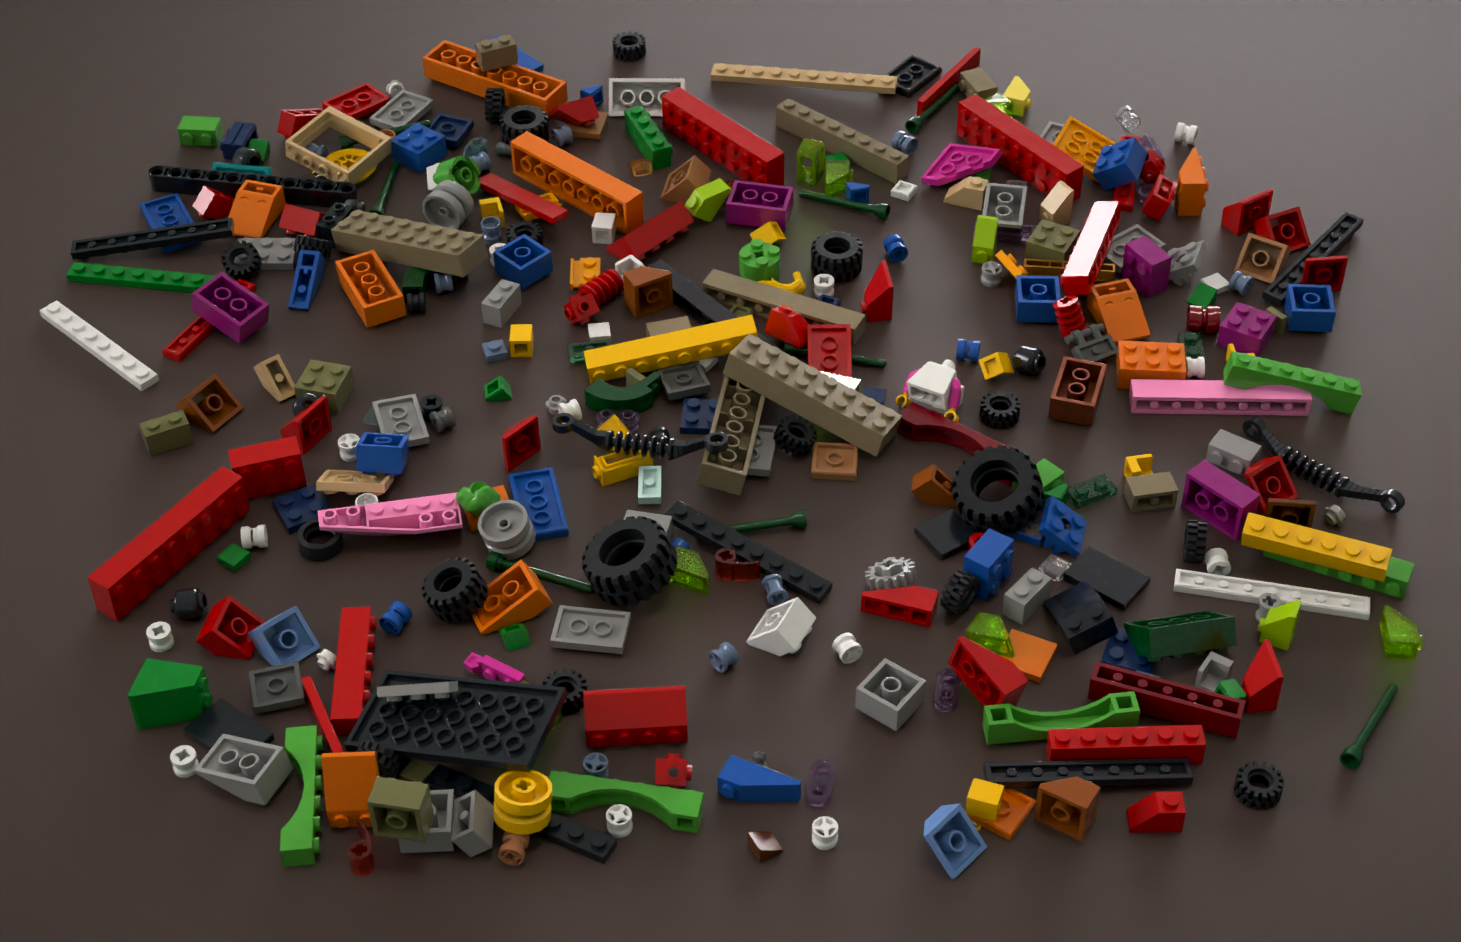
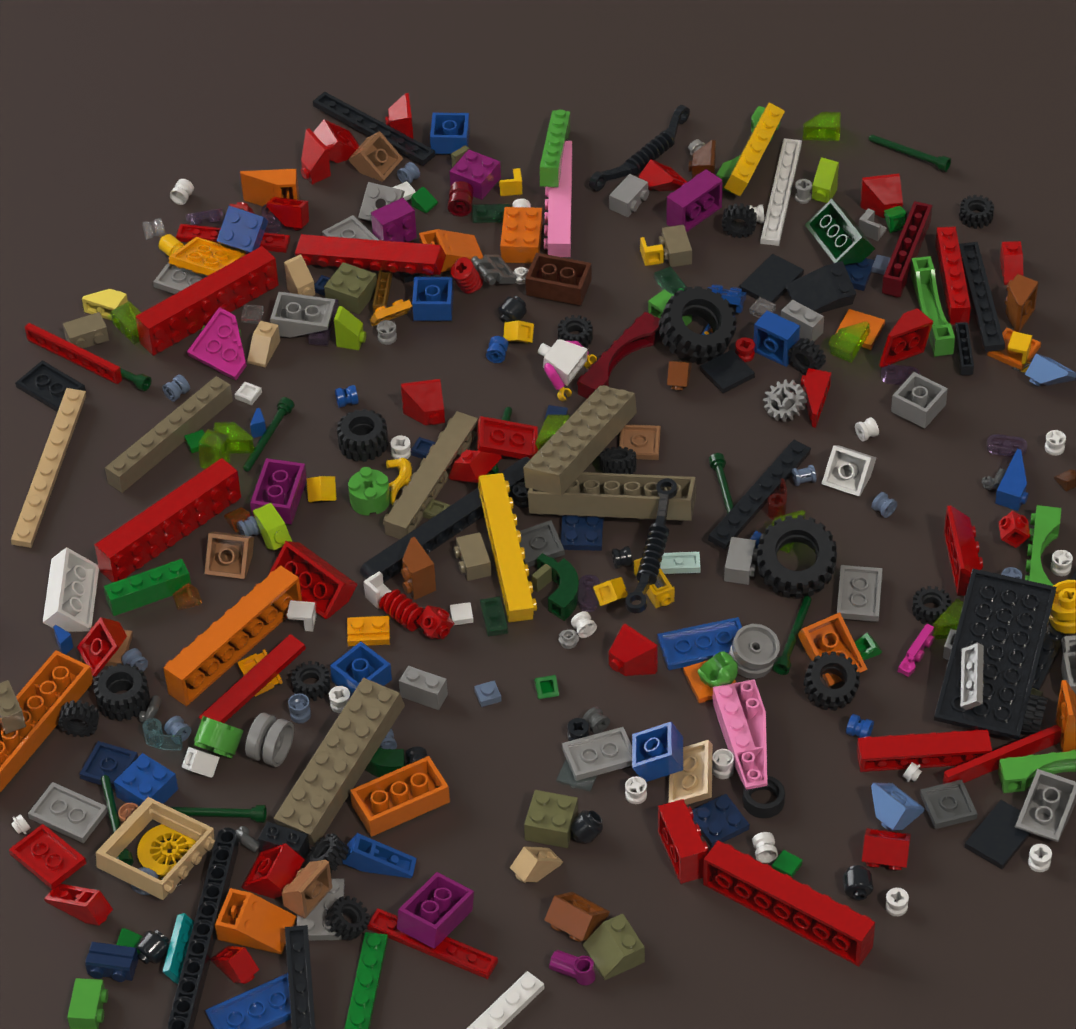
camera: 90 degrees left, 5 degrees up
(147, 404) = (573, 967): none -> magenta piece
(168, 693) = (978, 872): green slope -> none
(270, 229) = (308, 888): none -> medium nougat slope
(309, 425) = (619, 820): red slope -> none
(492, 207) = (270, 705): yellow panel -> none
(521, 340) = (478, 668): yellow brick -> none
(991, 751) = (964, 348): none -> black piece
(1106, 128) = (169, 244): none -> yellow brick

